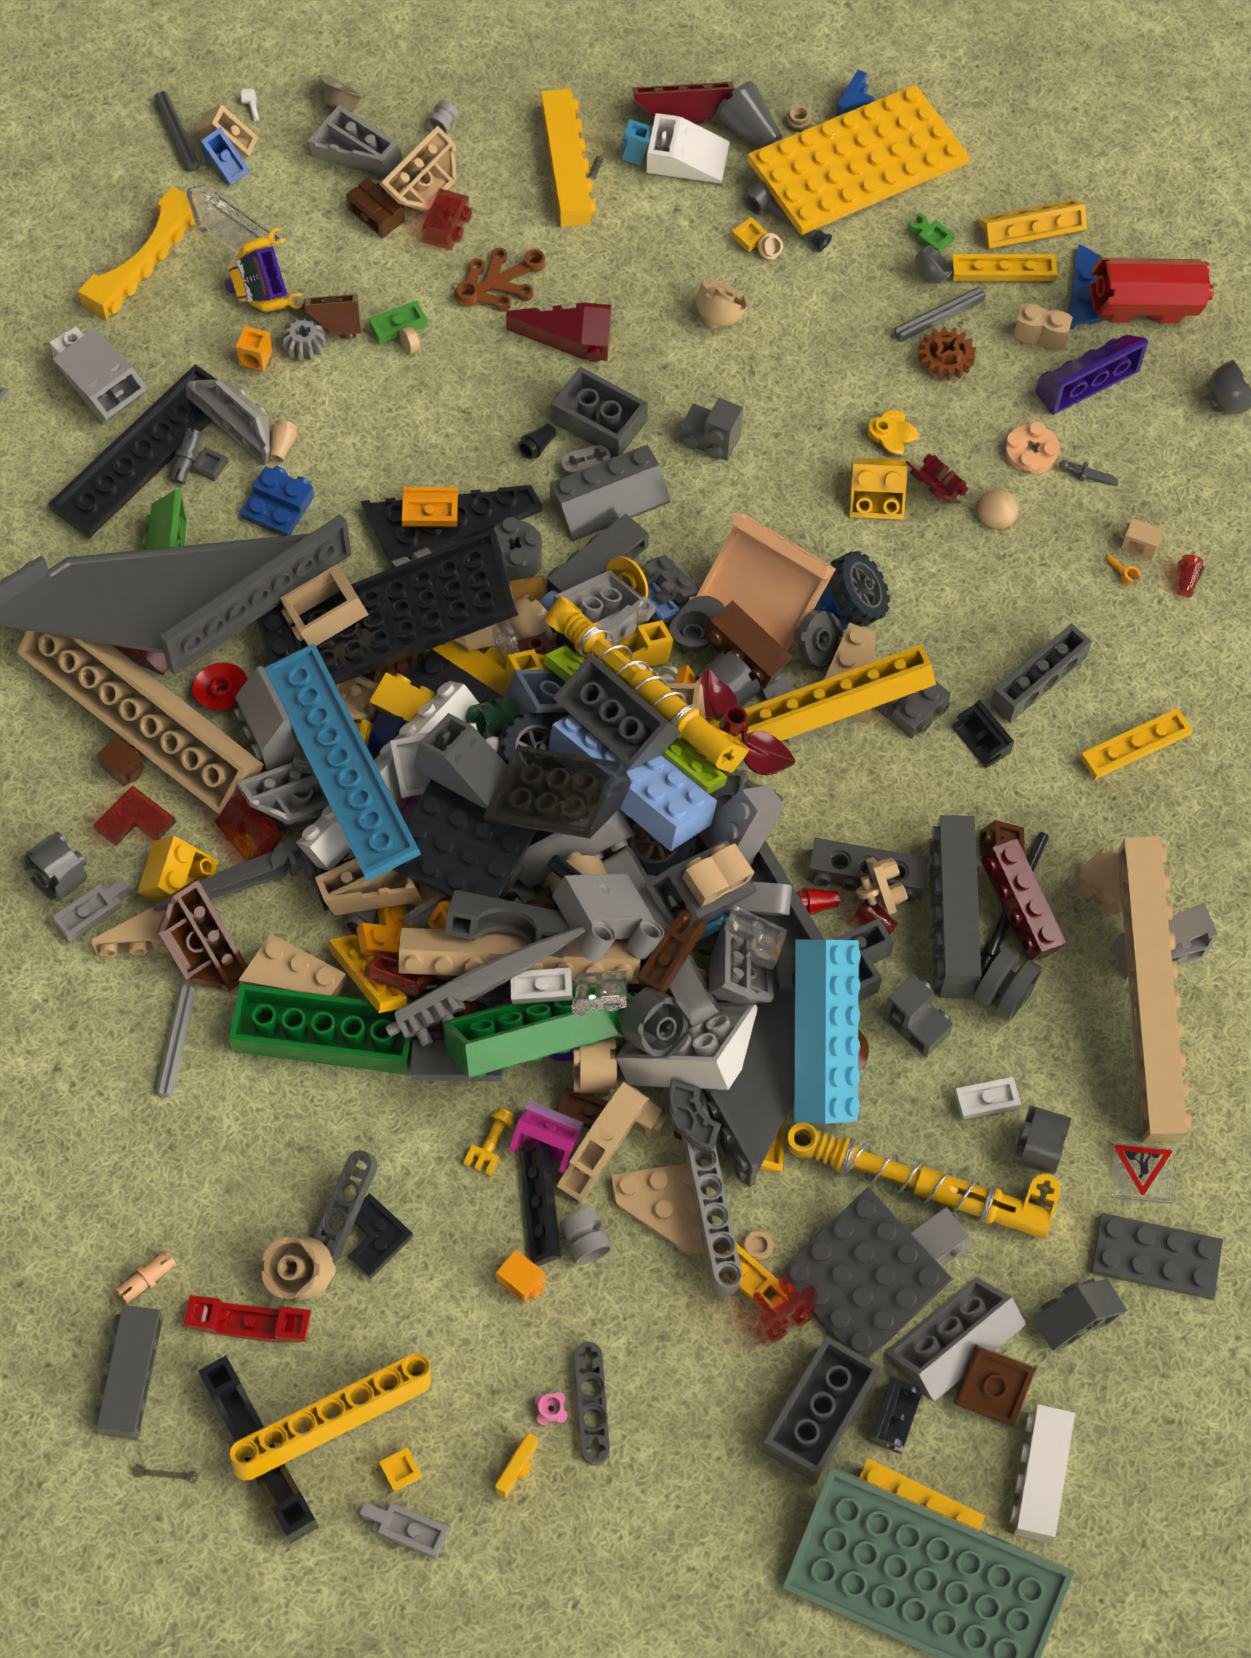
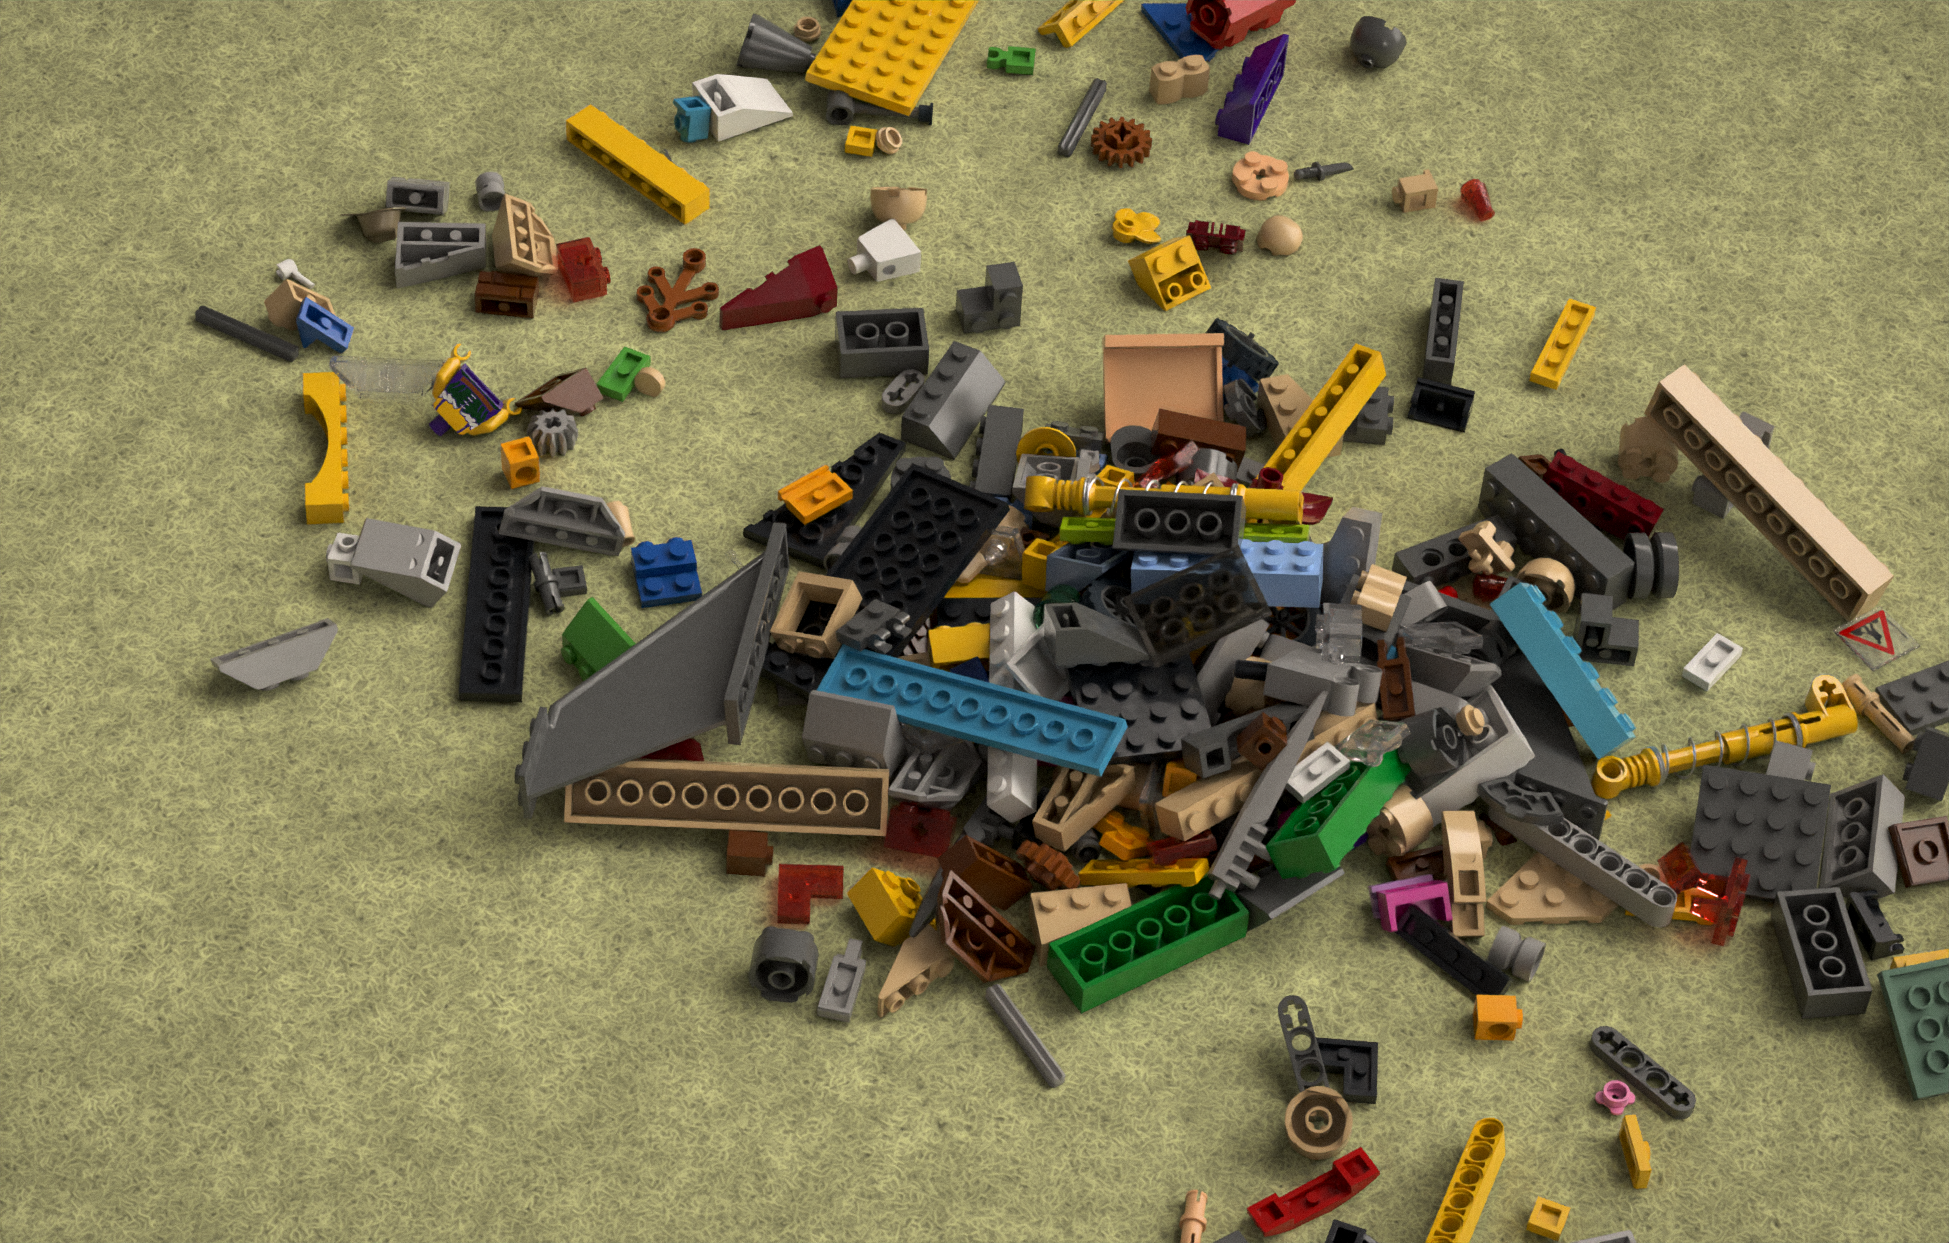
camera: 40 degrees left, 15 degrees down
(216, 678) = (770, 734): red dish -> none
(247, 895) = (987, 872): none -> reddish brown brick
(304, 920) = (1047, 866): none -> dark orange gear
(341, 641) = (873, 626): none -> dark grey plate
(385, 91) = (418, 195): none -> light grey brick
(501, 1119) = (1358, 916): yellow hinge -> none
(509, 934) = (1262, 740): none -> reddish brown brick
(535, 442) = (846, 399): black cone -> none
(651, 886) = (1339, 633): none -> clear brick
(676, 339) = (886, 253): none -> white torso
(687, 101) = (711, 57): dark red wedge -> none
(697, 652) = (1168, 465): none -> clear red plate
(701, 1025) = (1470, 720): none -> tan plate
(778, 1257) = (1680, 868): none -> clear red plate
(911, 944) = (1553, 581): none -> tan cylinder
(932, 265) = (1041, 83): dark grey hair -> none
(1004, 267) = (1099, 53): yellow plate -> none
(1042, 1140) = (1787, 658): dark grey brick -> none
(1084, 1222) = (1869, 704): none -> tan pin
(1124, 571) = (1430, 228): light orange hand -> none

